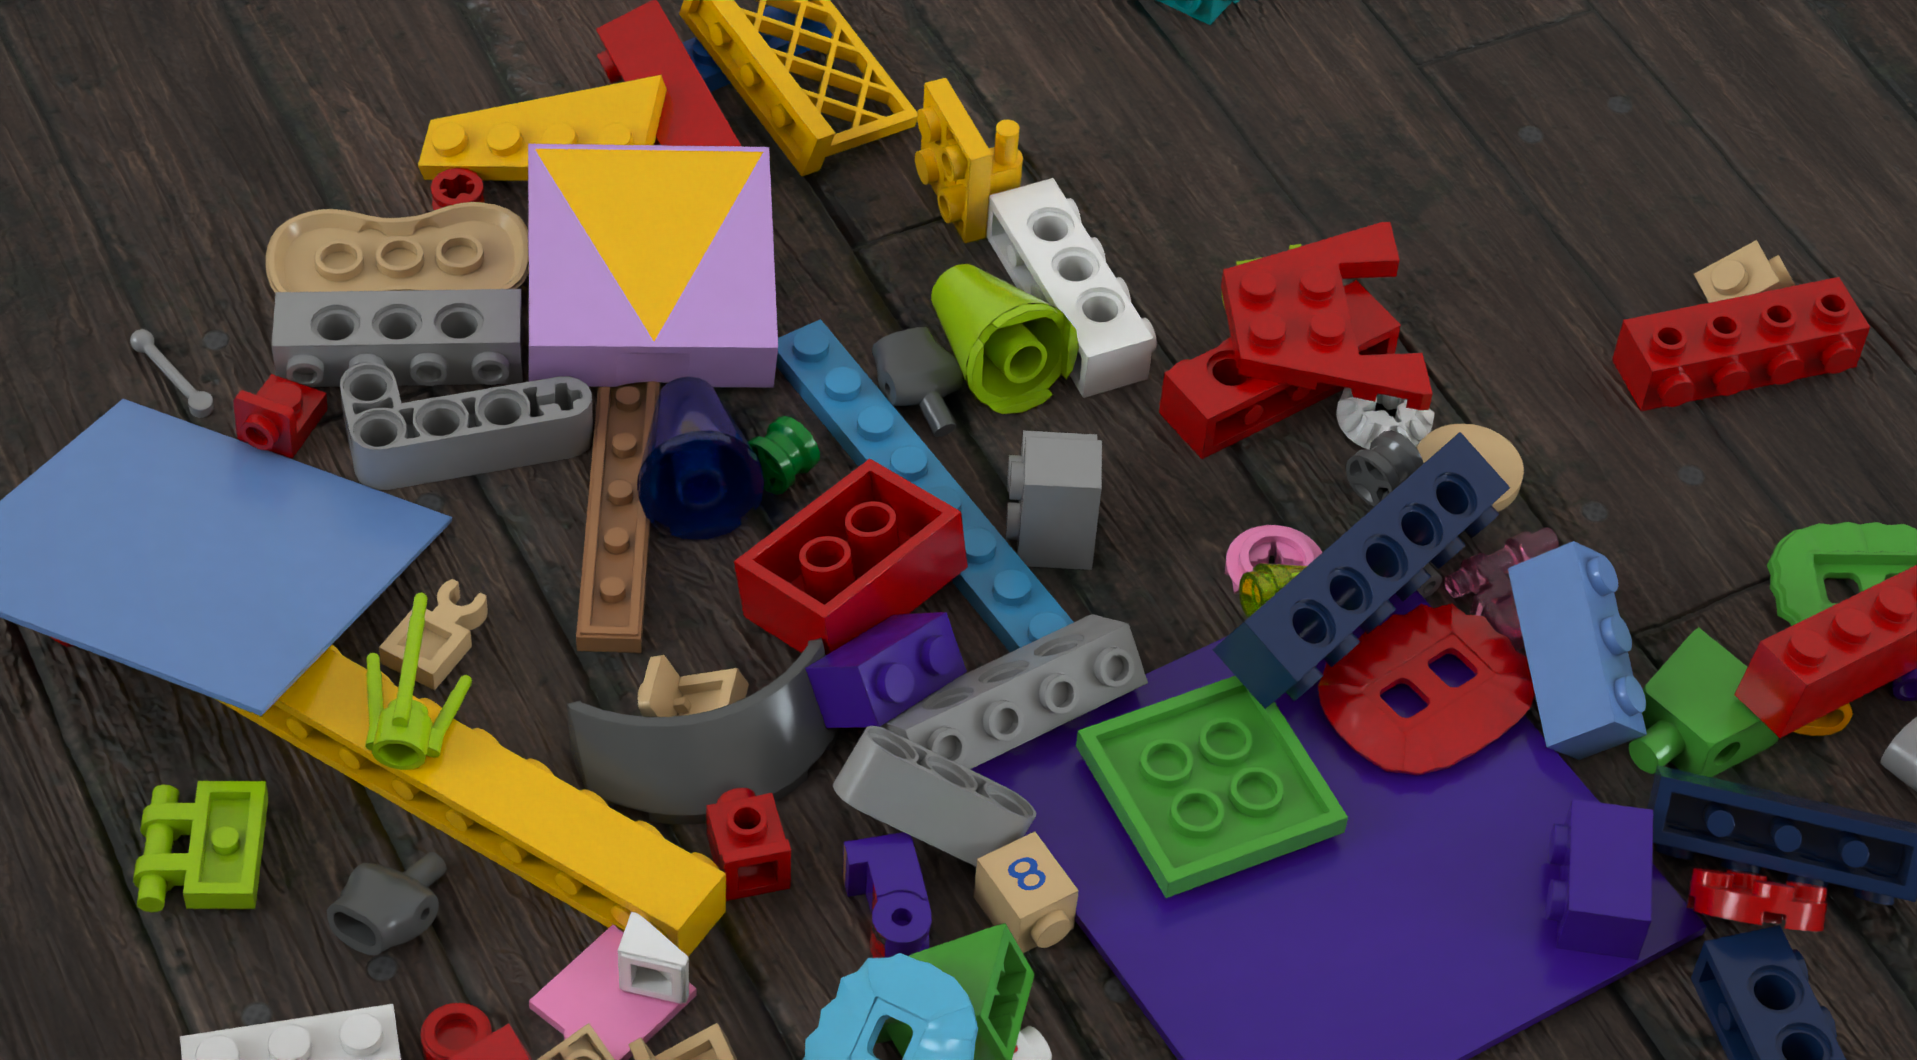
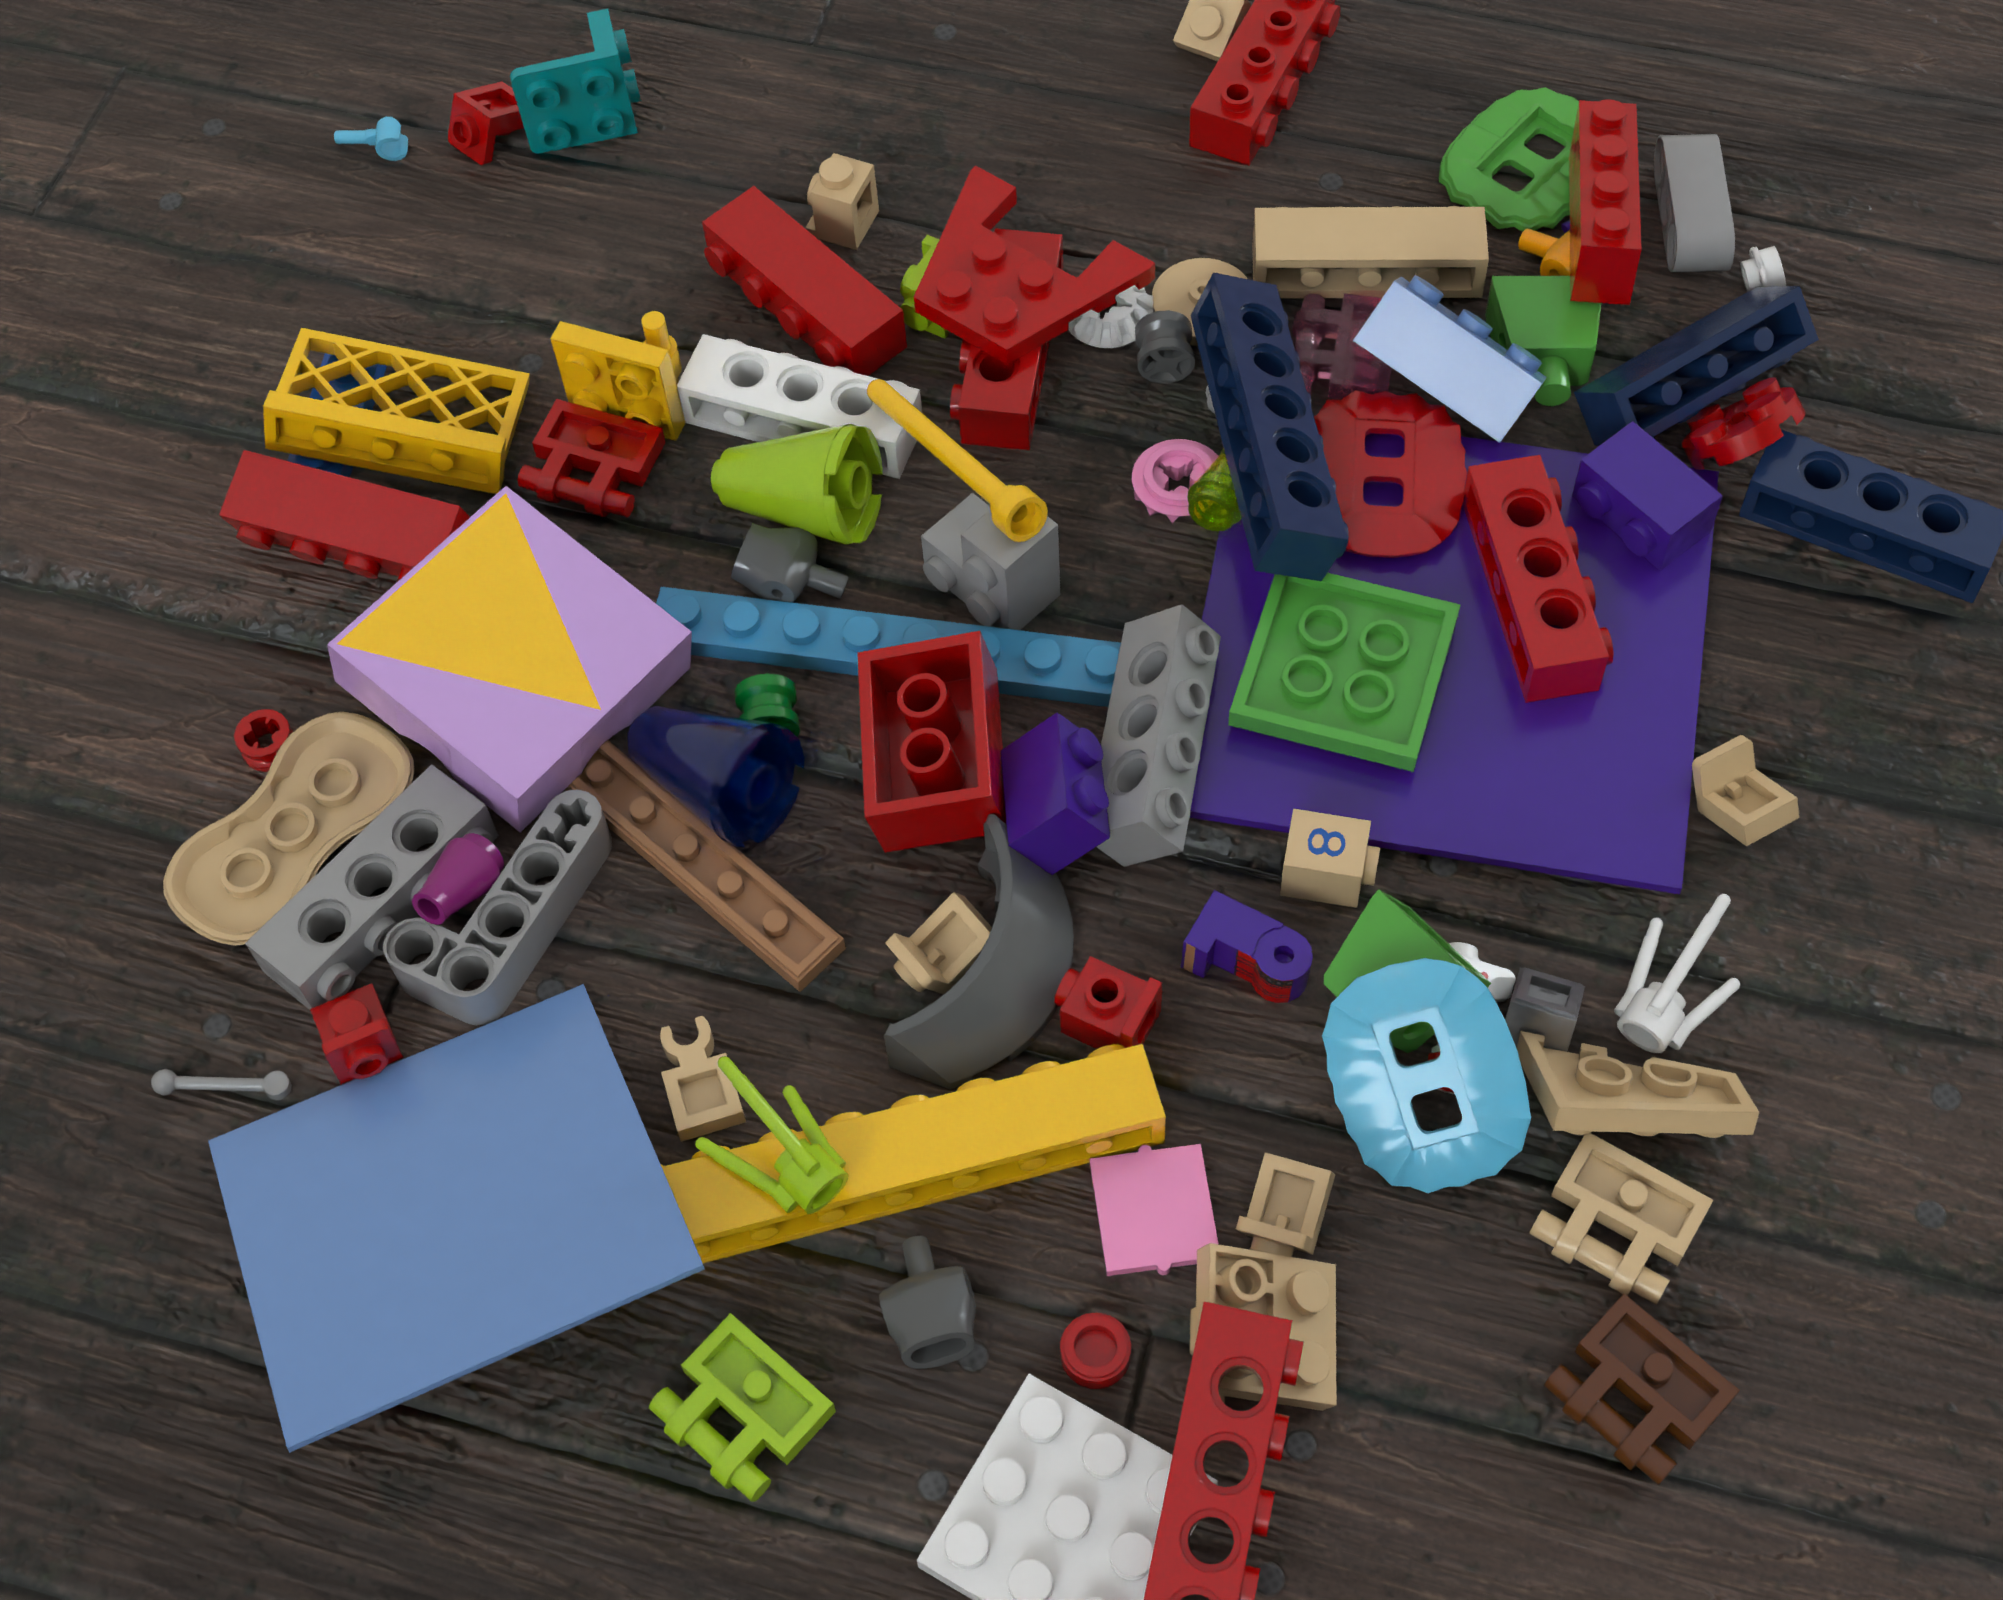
camera: 40 degrees left, 10 degrees up
(442, 367) = (459, 877): none -> magenta cone
(497, 138) = (284, 630): yellow wing -> none
(651, 963) = (1166, 1156): white slope -> none
(902, 198) = (596, 443): none -> red plate
(931, 796) = (1206, 852): light grey beam -> none
(1076, 446) = (1013, 508): none -> yellow piece
(1173, 209) = (803, 284): none -> red brick
(1278, 163) = (842, 201): none -> tan brick
(1460, 815) = (1546, 659): none -> red brick
(1655, 549) = (1368, 249): none -> tan brick

